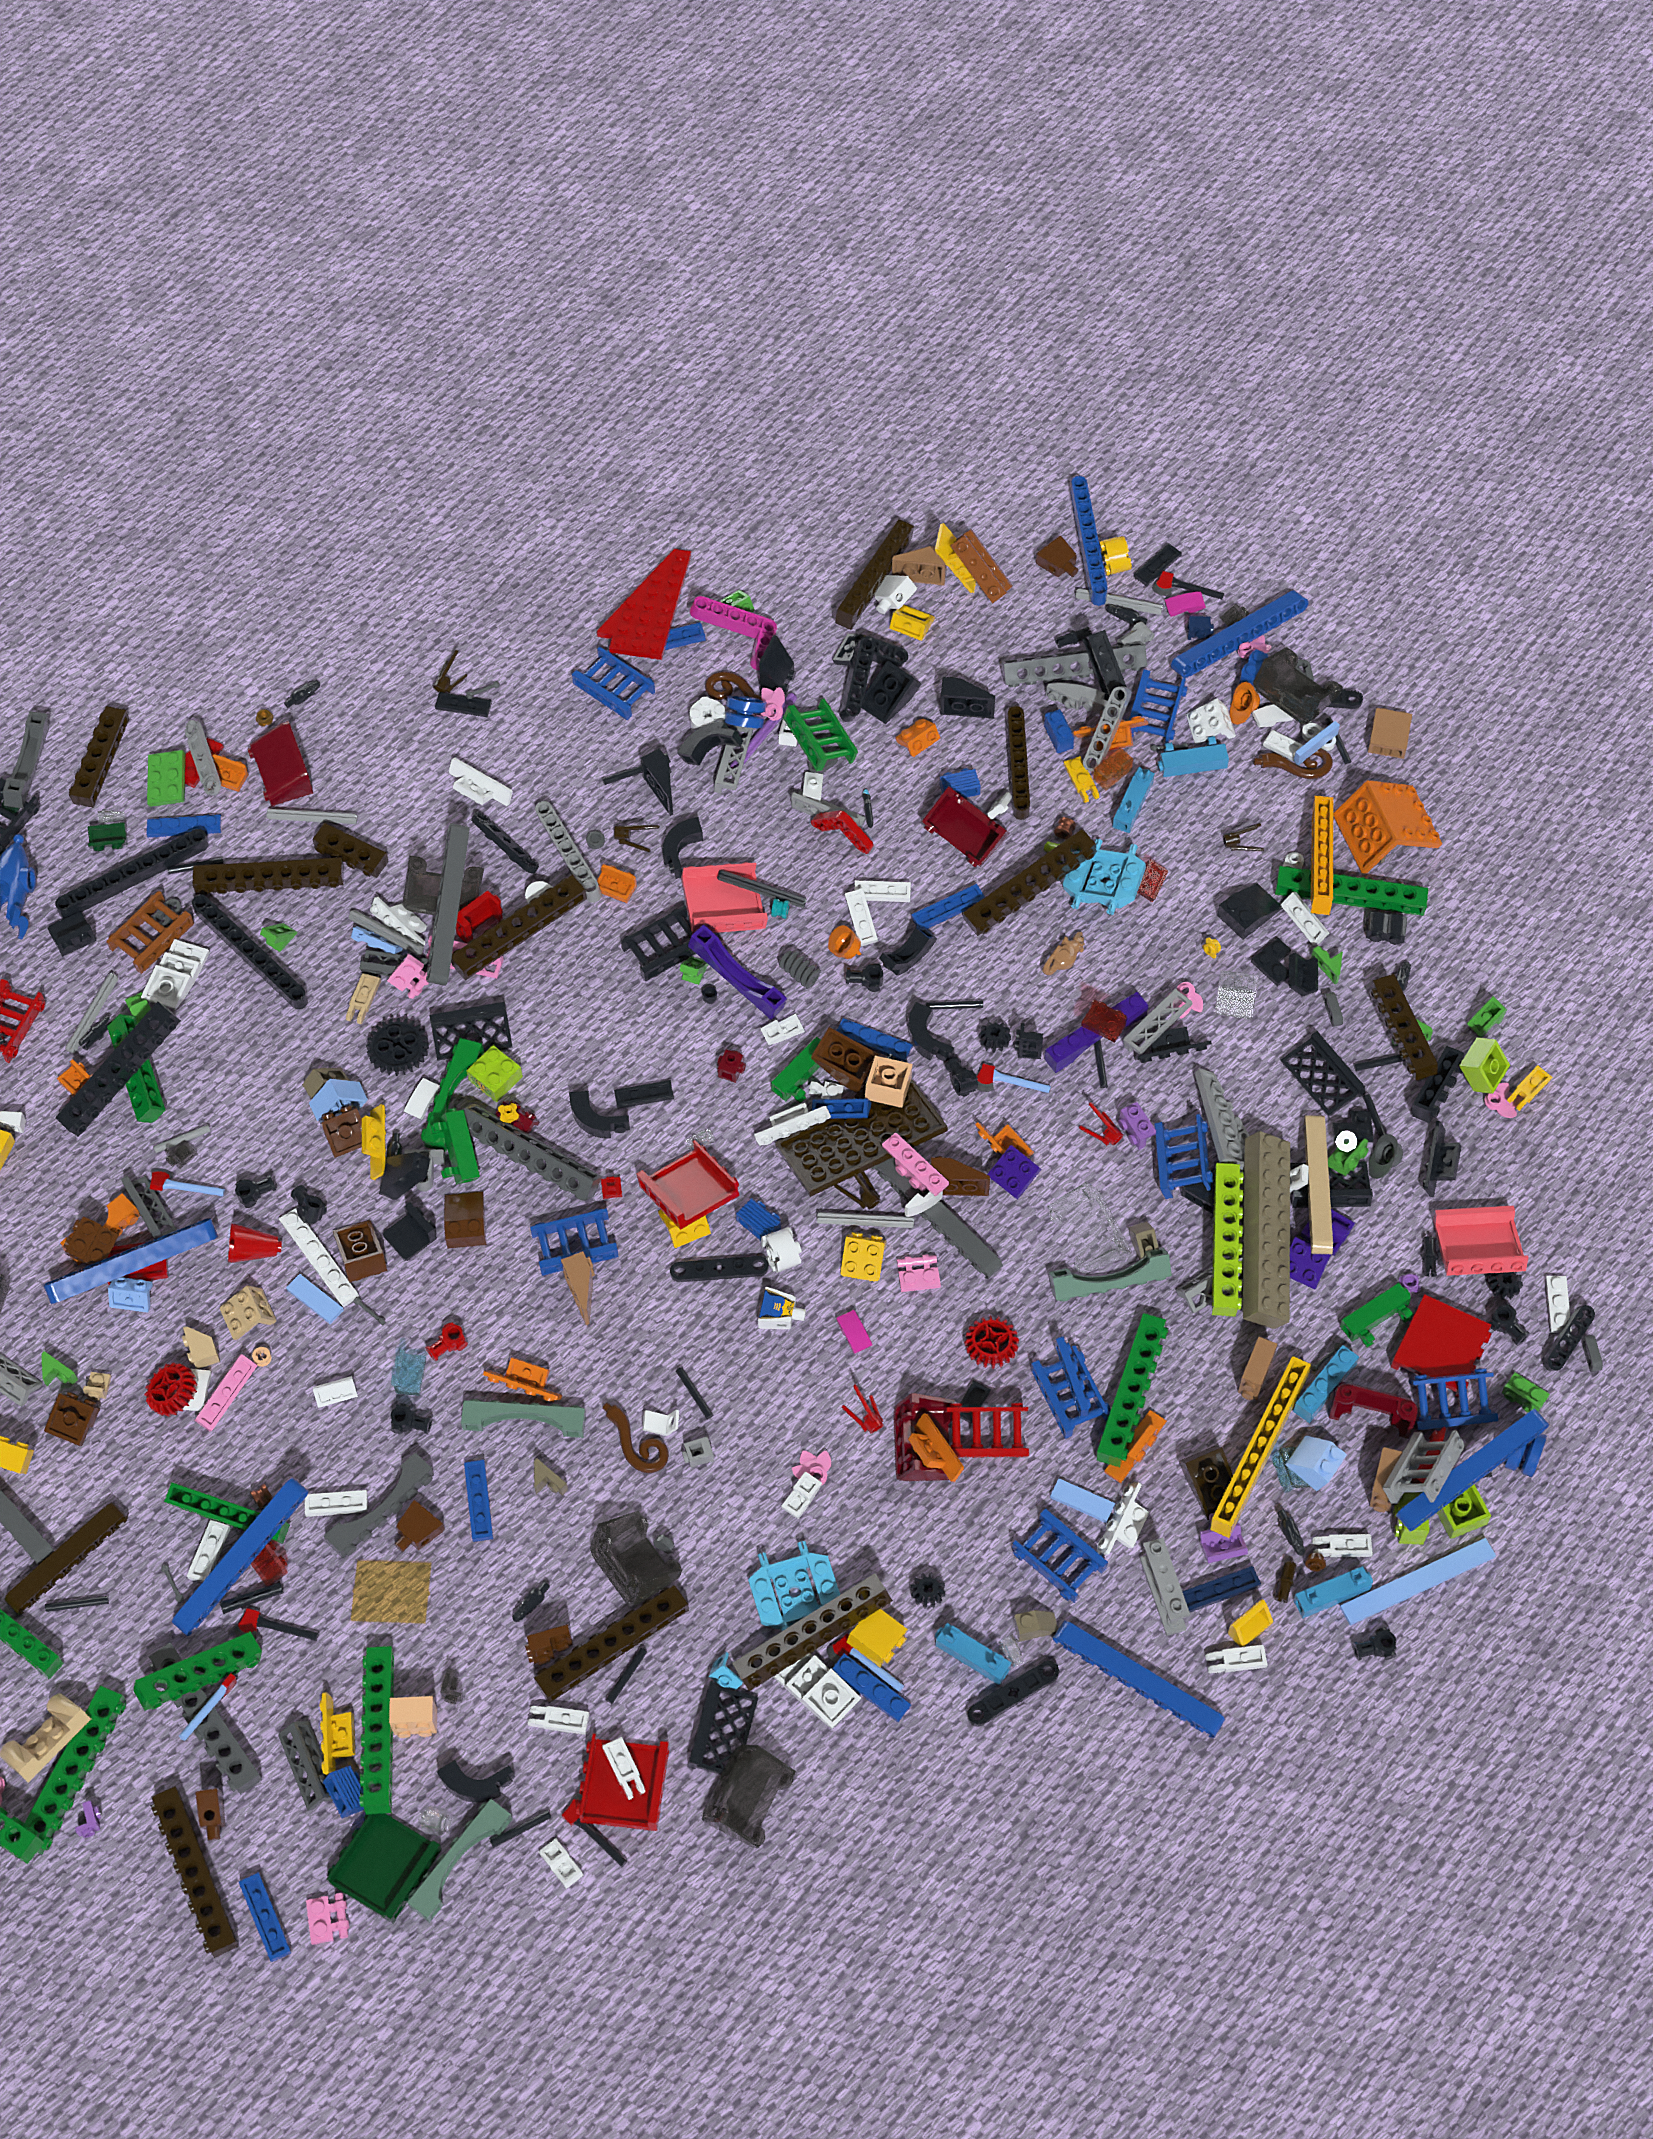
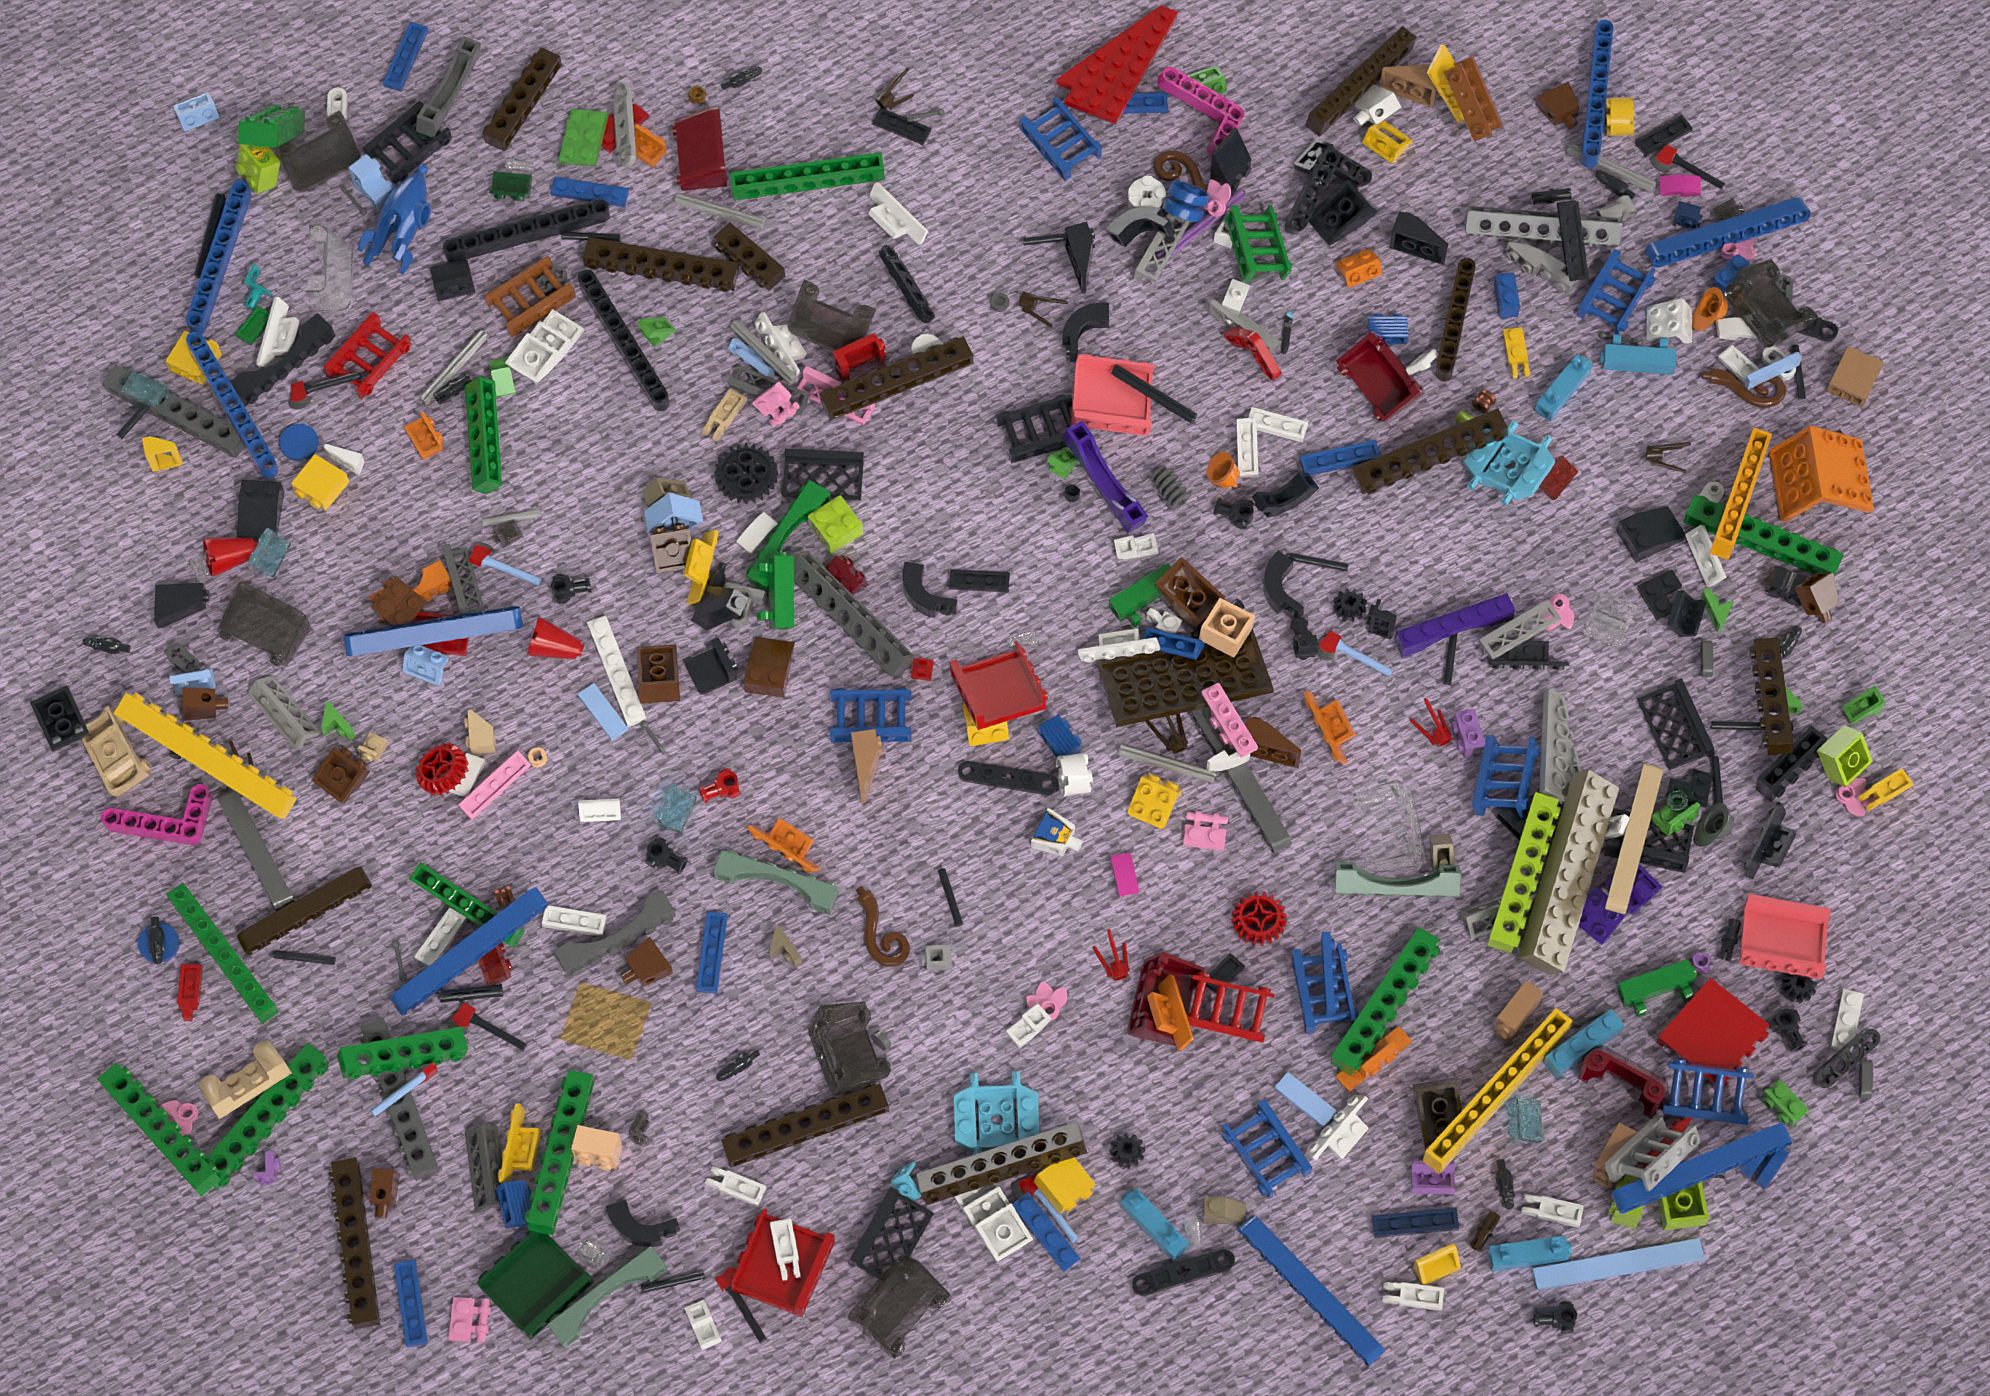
camera: 15 degrees right, 5 degrees up
(118, 1069) = (465, 433): black brick -> none
(246, 1311) = (534, 707): tan bracket -> none
(309, 1207) = (619, 618): black connector -> none
(387, 766) = (807, 176): none -> green brick
(447, 904) = (830, 339): dark grey beam -> none
(508, 1117) = (838, 574): yellow plate -> none
(541, 1644) = (737, 1109): reddish brown plate -> none
(563, 844) = (971, 315): light grey beam -> none
(616, 883) = (1007, 353): orange bracket -> none
(626, 1675) = (811, 1160): black bar -> none
(660, 1423) = (908, 919): white bracket -> none
(731, 1065) = (1074, 572): dark red brick -> none
(780, 908) = (1167, 419): teal wheel -> none
(875, 1040) = (1226, 579): blue plate -> none
(1014, 1172) = (1329, 751): dark purple plate -> none
(1064, 955) = (1445, 536): medium nougat animal -> none
(1104, 1021) = (1464, 616): clear red bracket -> none
(1113, 722) = (1563, 302): light grey beam -> none
(1113, 769) = (1551, 349): clear orange brick -> none
(1123, 736) = (1561, 314): orange bracket -> none
(1164, 1586) = (1360, 1206): light grey fence -> none
(1211, 947) = (1600, 563): yellow plate -> none
(1315, 1562) = (1520, 1219): reddish brown plate -> none
(1316, 1461) = (1549, 1119): light blue slope -> none
(1417, 929) = (1819, 595): none -> torso

